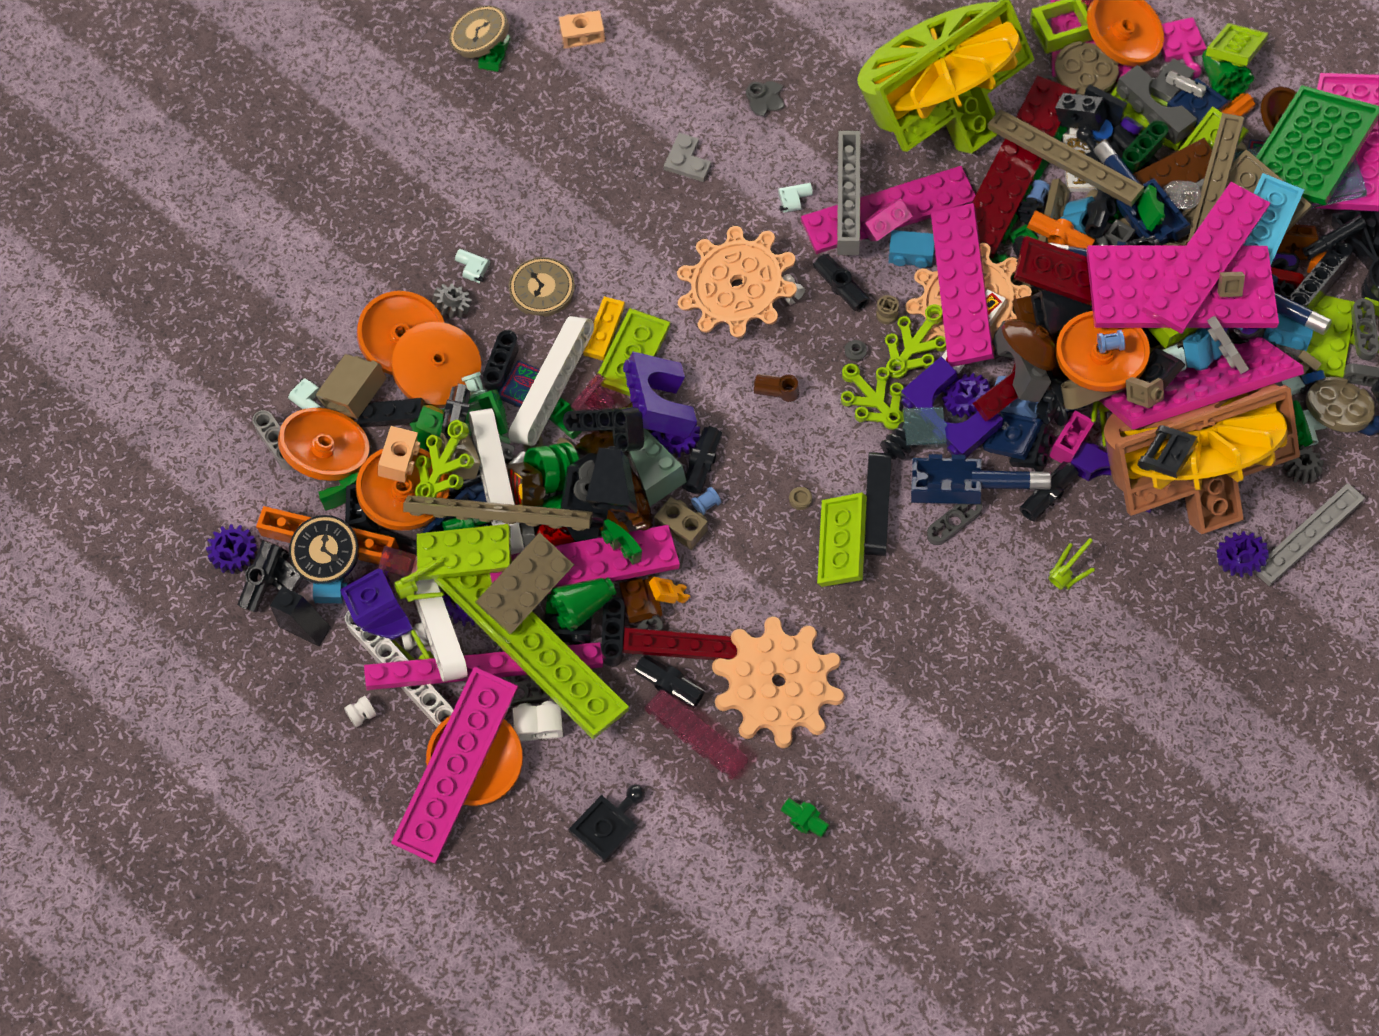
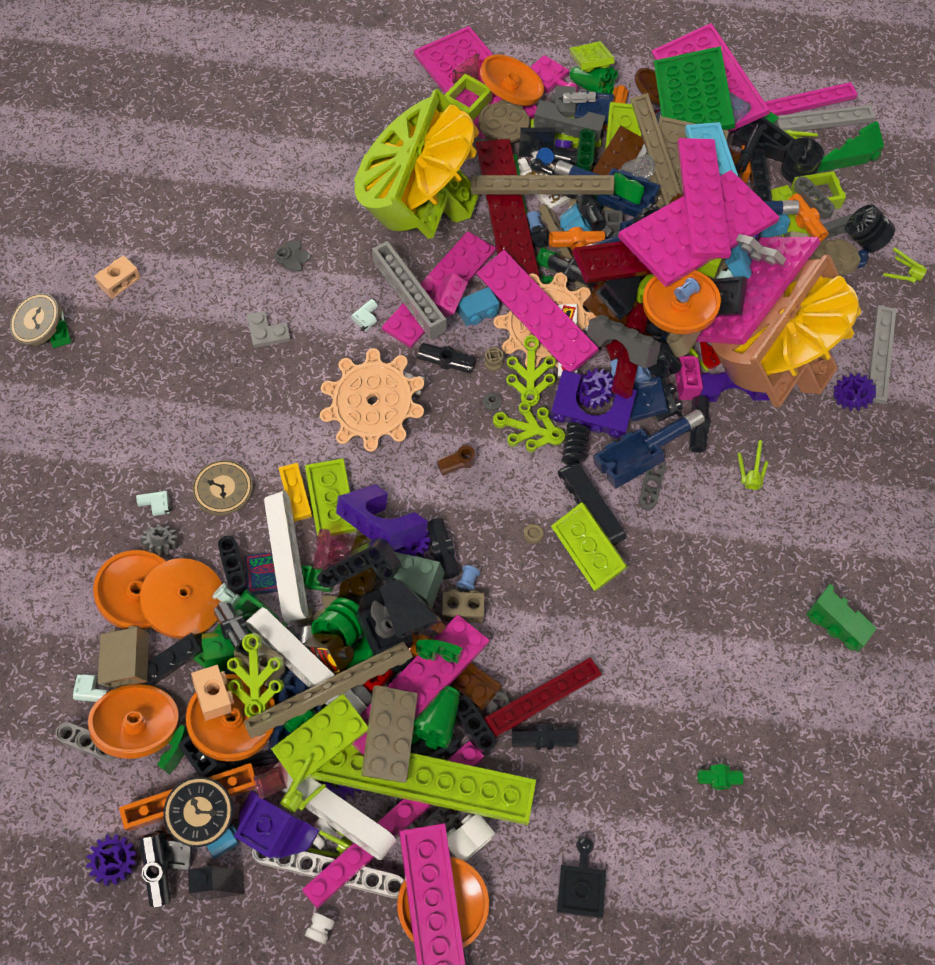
camera: 40 degrees left, 0 degrees up
(666, 591) = (493, 668): light orange plate -> none
(697, 733) = (594, 764): clear pink beam -> none
(773, 706) = (607, 699): light nougat plate -> none
(924, 426) = (587, 427): clear light blue piece -> none
(1031, 343) = (627, 322): reddish brown dish -> none
(1037, 755) = (840, 620): none -> green wedge
(1081, 111) = (526, 149): black brick -> none
(1143, 392) = (733, 313): dark tan bracket -> none
(1174, 454) = (801, 341): black plate -> none
(1231, 284) = (735, 206): dark tan tile -> none
(1341, 347) = (809, 219): none -> orange piece

